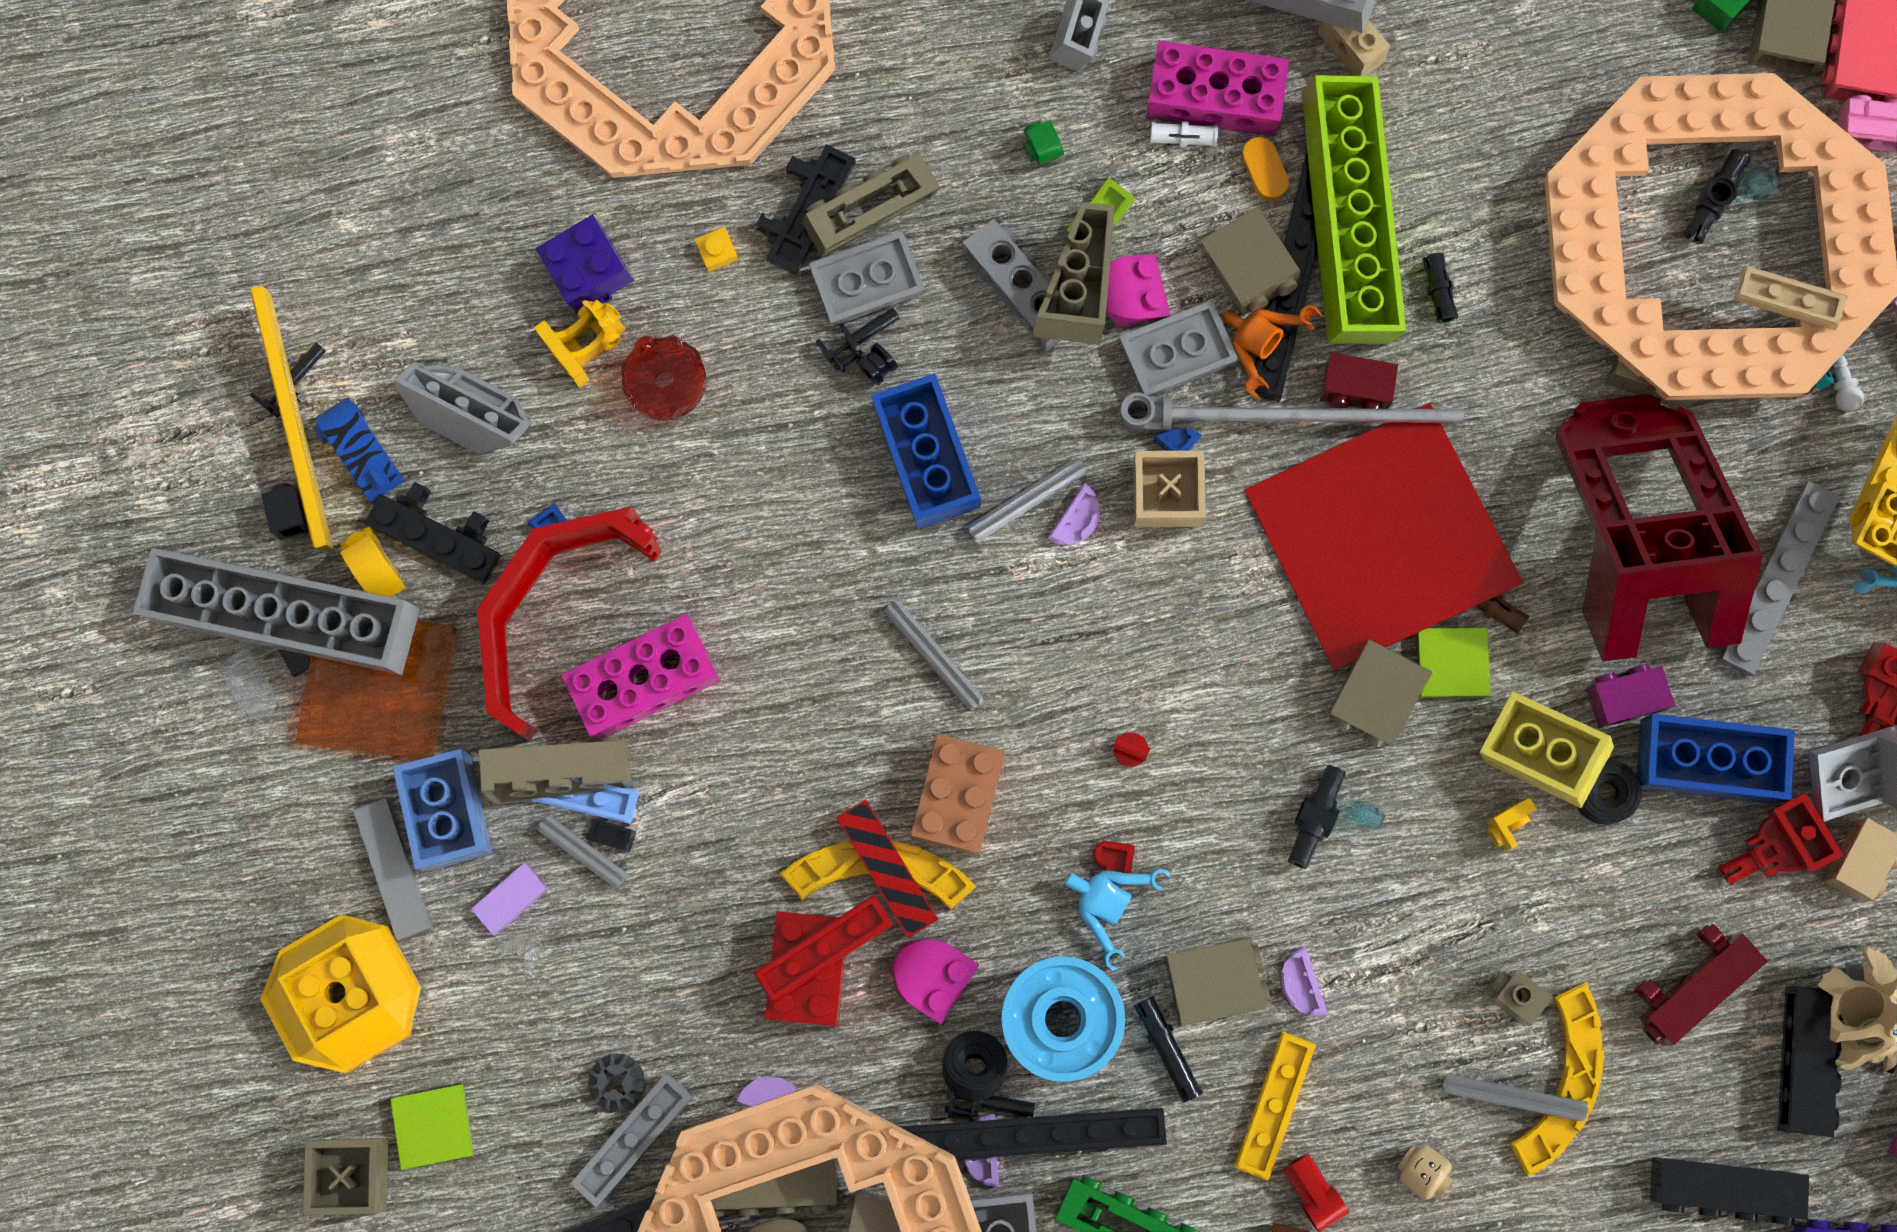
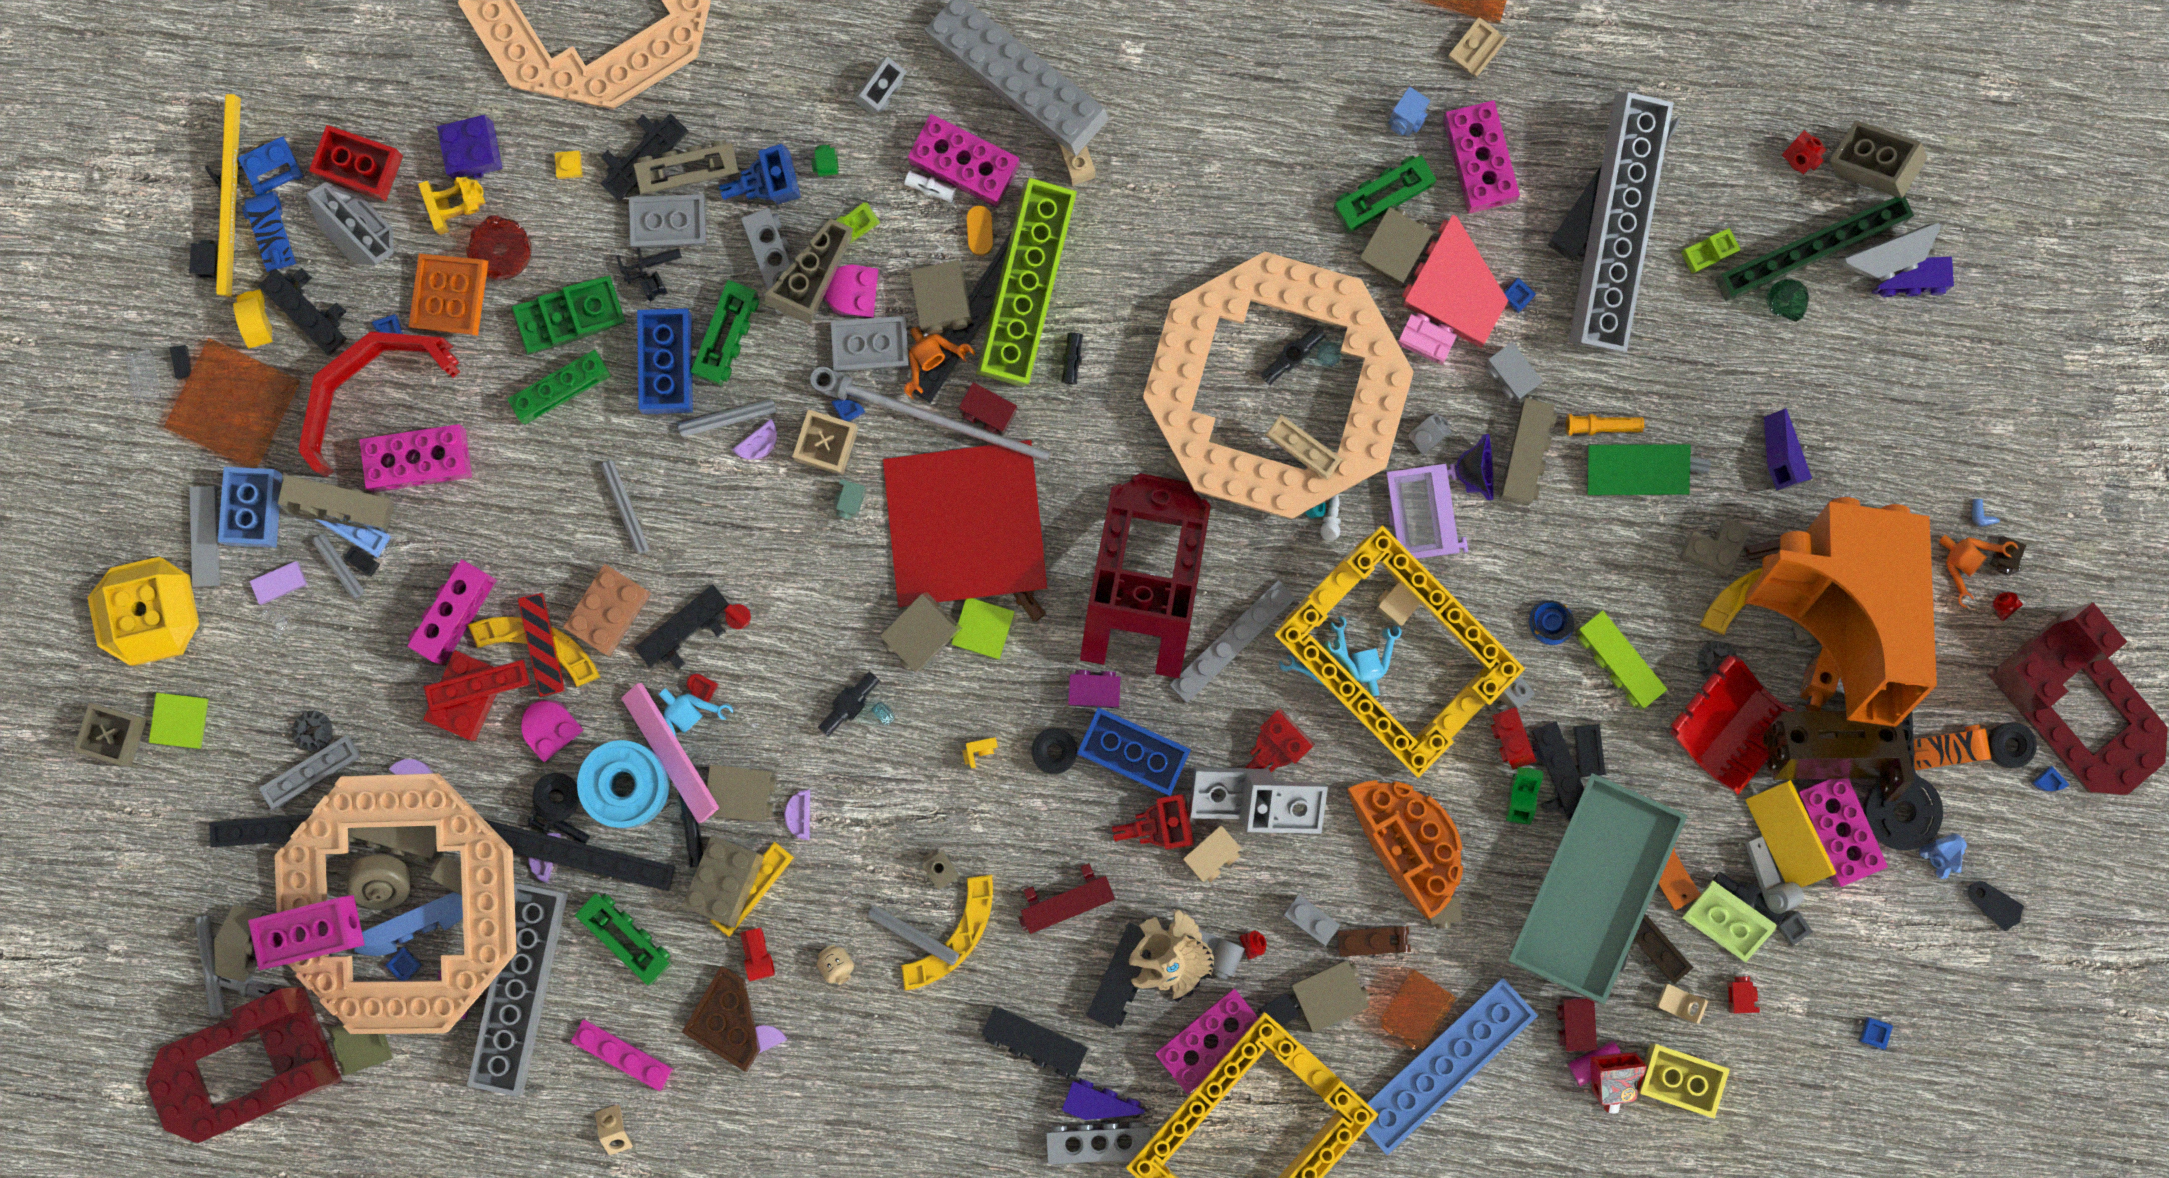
camera: 15 degrees right, 5 degrees up
(277, 611) = (176, 331): light grey brick -> none
(327, 360) = (266, 159): none -> blue plate
(444, 327) = (356, 163): none -> red brick
(617, 454) = (448, 294): none -> orange plate
(755, 807) = (451, 626): none -> dark pink brick
(778, 434) = (568, 315): none -> green slope
(799, 527) = (559, 387): none -> green brick
(976, 186) = (767, 178): none -> blue brick
(992, 340) = (731, 348): none -> green brick
(1046, 811) = (697, 614): none -> black hinge
(1104, 951) = (670, 753): none -> bright pink tile
(1223, 552) = (849, 499): none -> sand green brick
(1238, 1107) = (723, 881): none -> dark tan brick
(1547, 749) = (1017, 708): light yellow brick -> none

